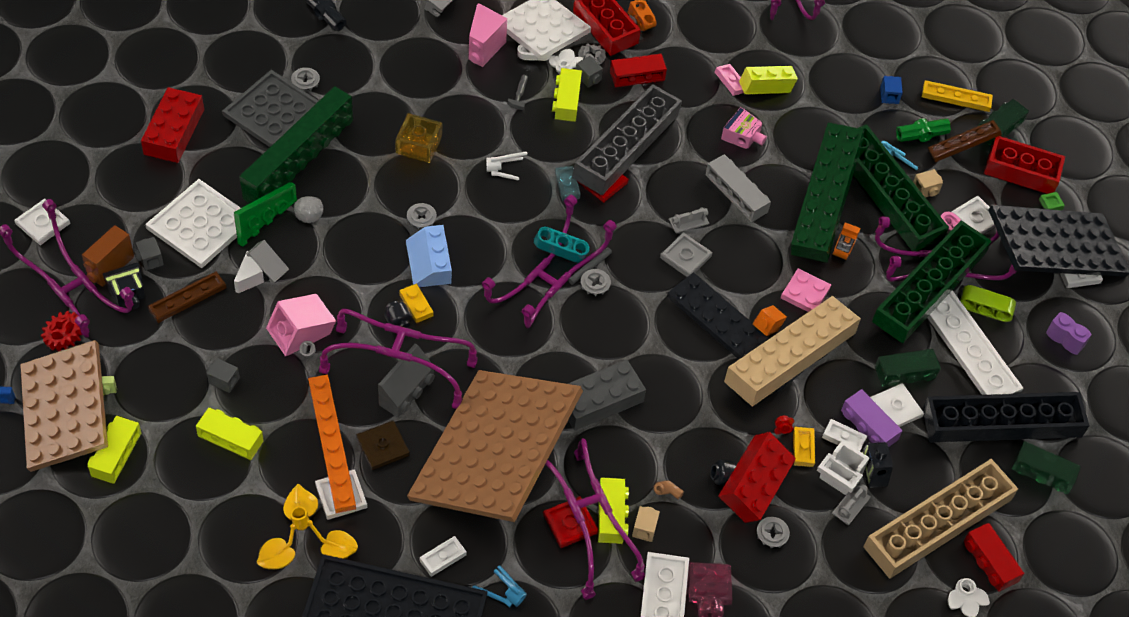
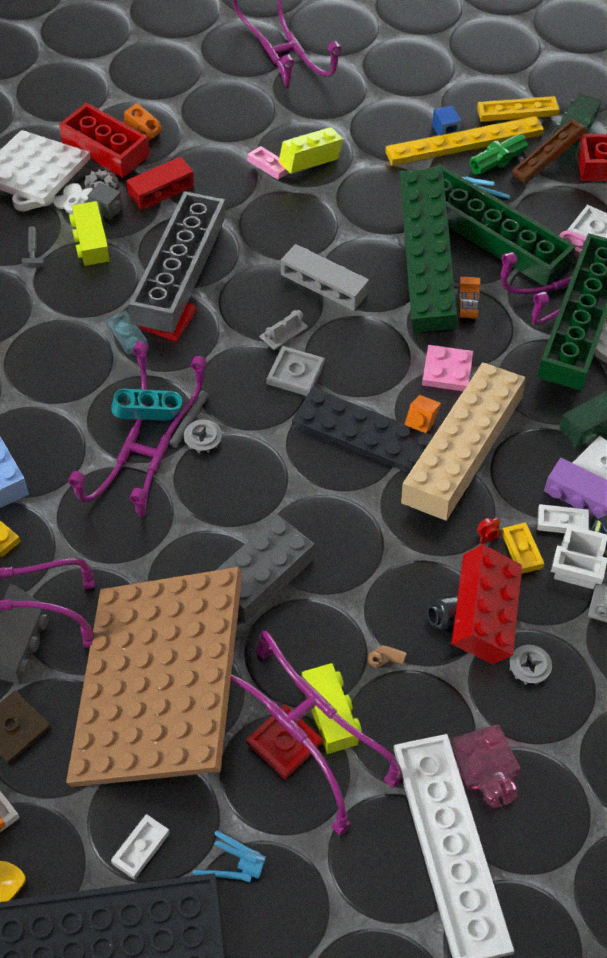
camera: 15 degrees left, 0 degrees up
(494, 164) = (32, 337): white plant -> none
(645, 523) = (377, 709): tan brick -> none
(743, 130) = (305, 212): bright pink torso -> none
(899, 109) = (462, 140): none -> yellow plate
(928, 183) = (531, 205): tan brick -> none

